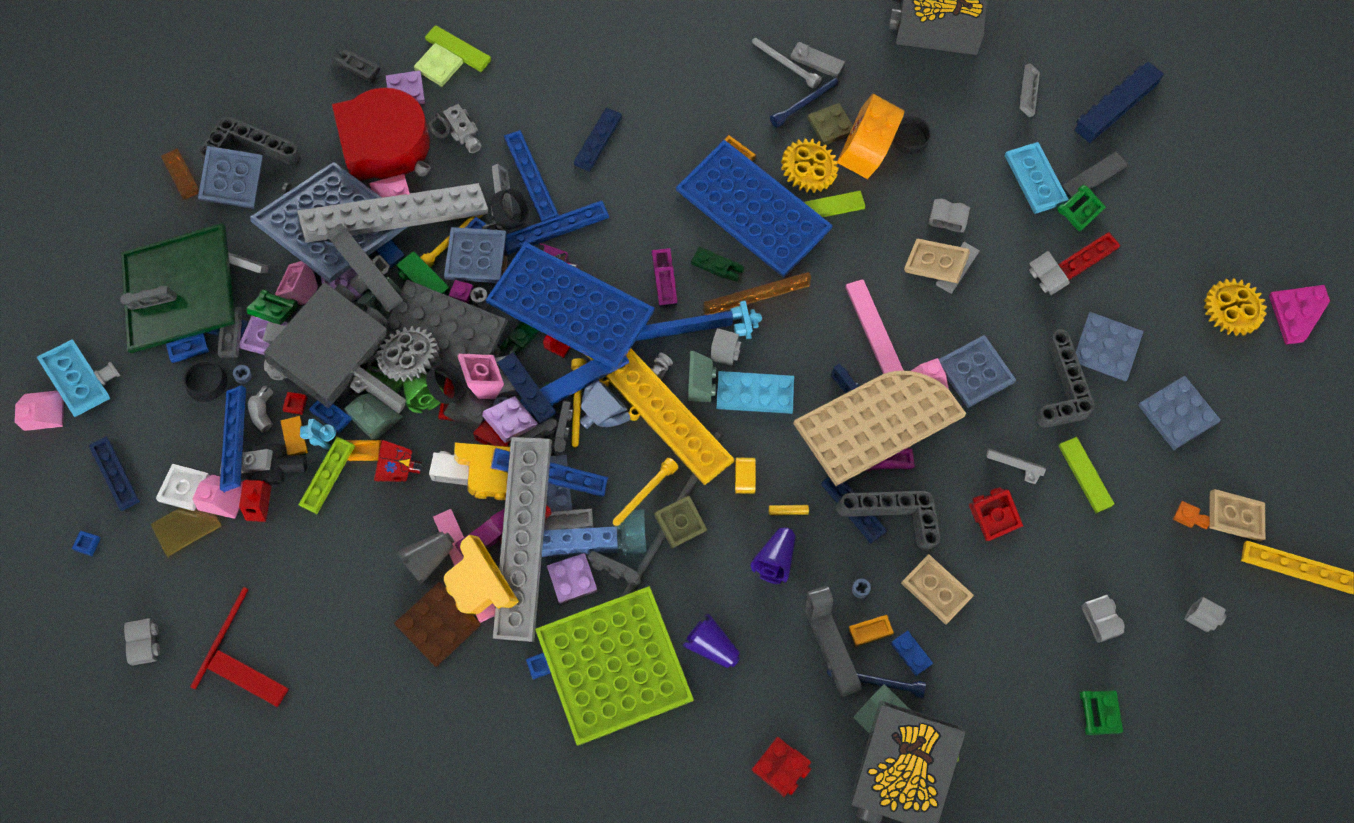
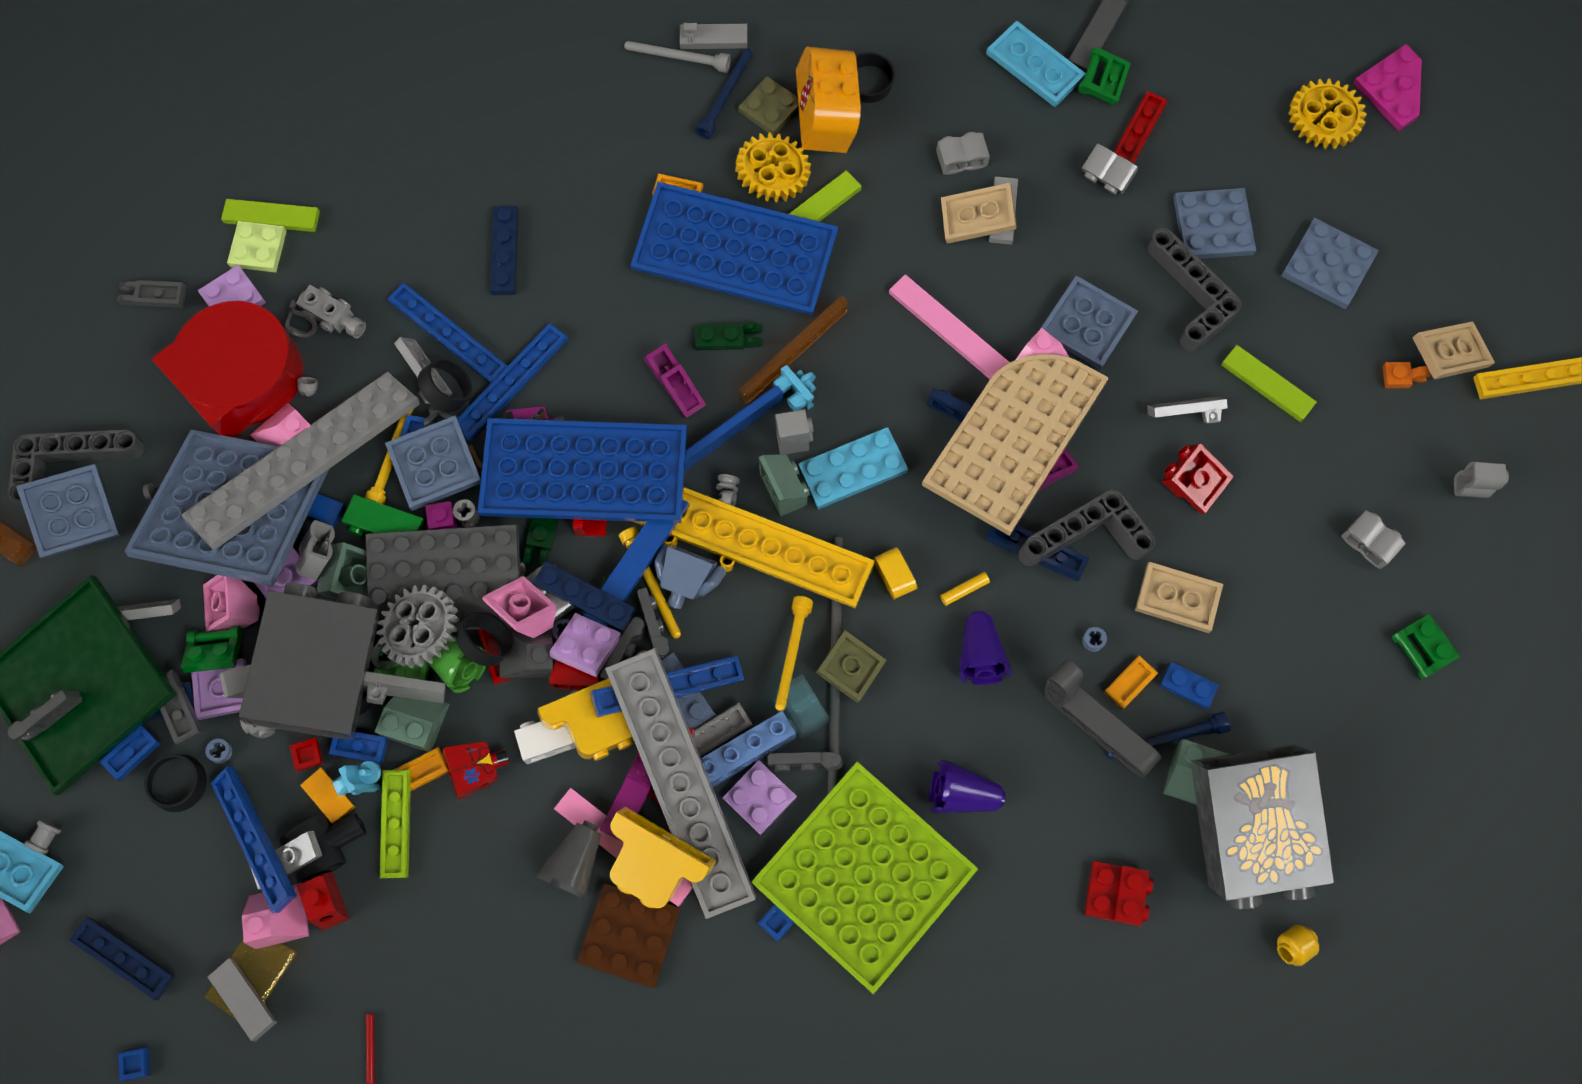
camera: 25 degrees left, 5 degrees up
(172, 536) = (242, 999): none -> light grey tile
(180, 486) = (219, 931): white plate -> none
(257, 409) = (264, 786): light grey arm -> none
(364, 267) = (305, 545): dark grey beam -> none

